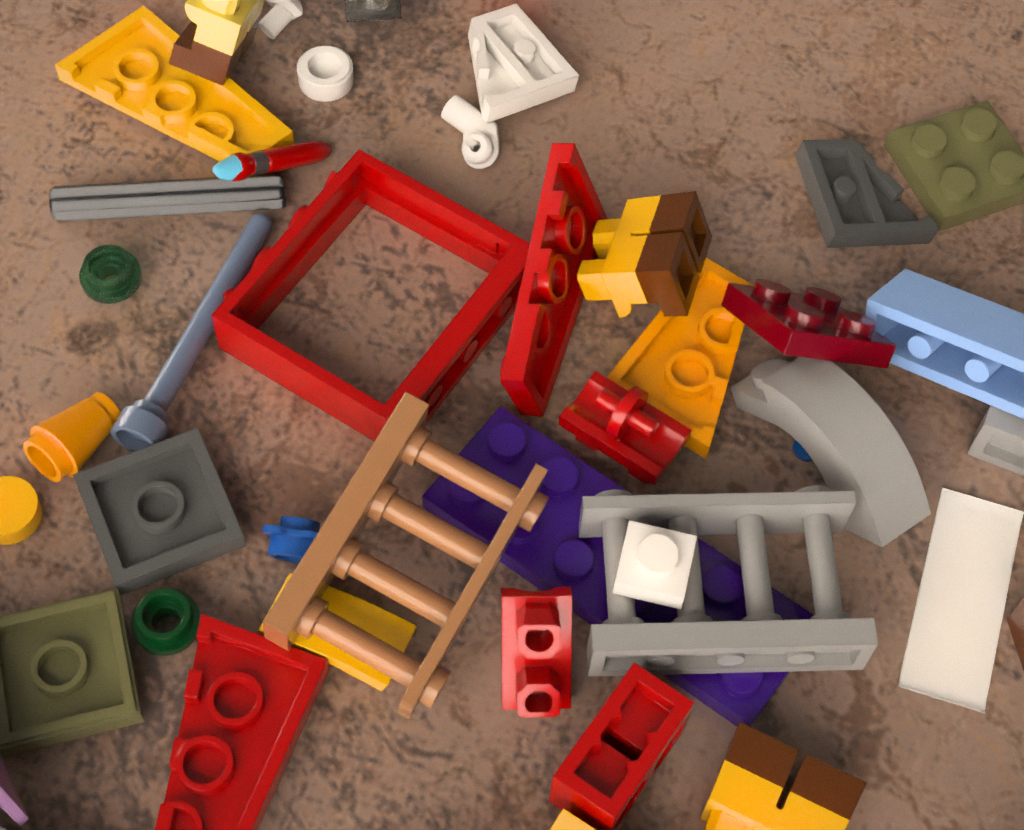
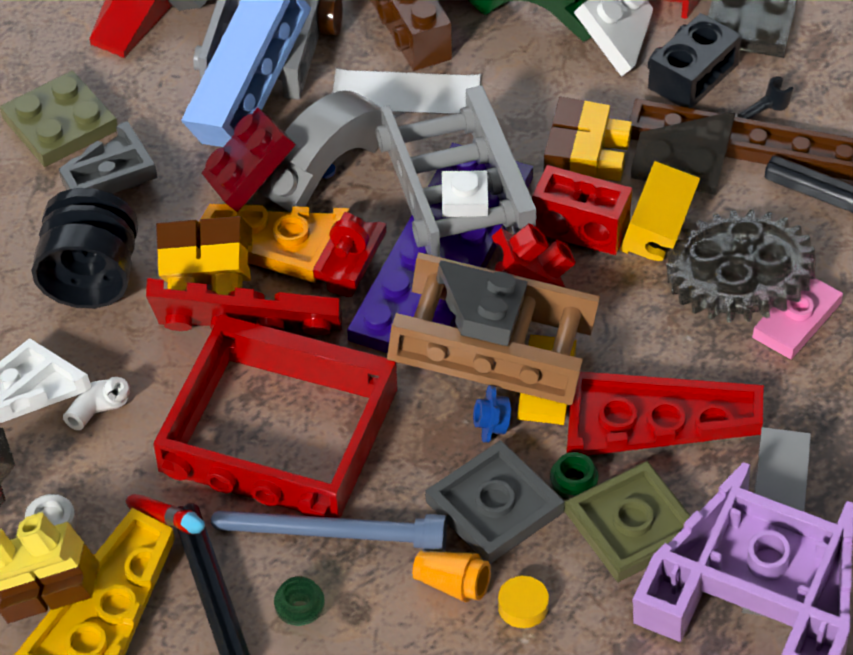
camera: 100 degrees left, 10 degrees down
(426, 527) = (482, 301): none -> dark grey wing
(688, 128) = (85, 248): none -> black wheel

